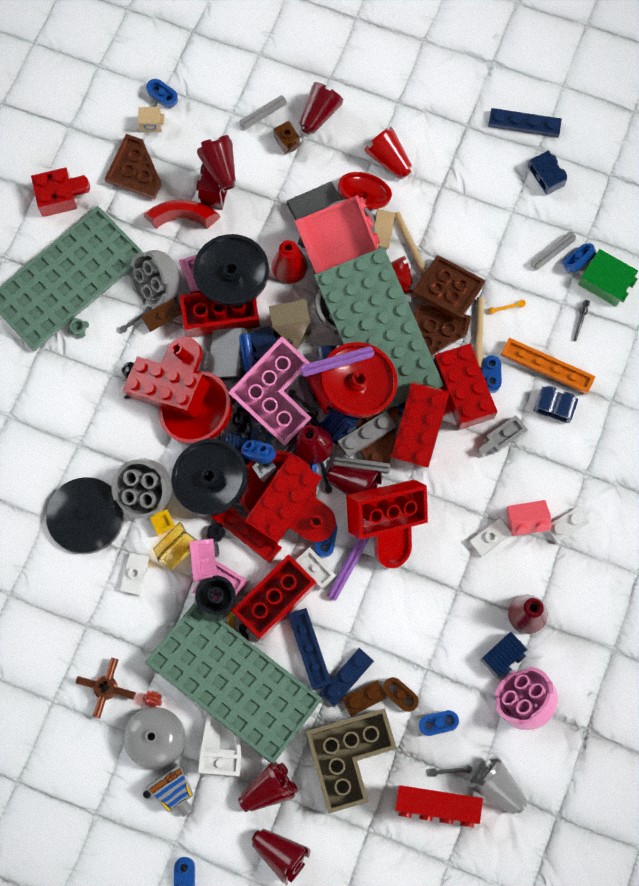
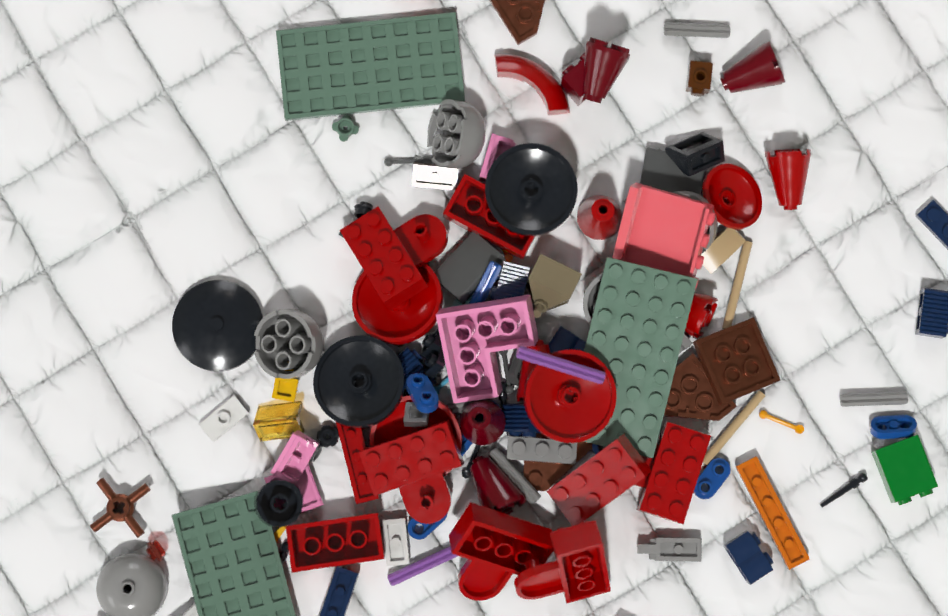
camera: 30 degrees right, 10 degrees up
(321, 180) = (698, 158): none -> black tile
(451, 487) = (577, 569): none -> red brick

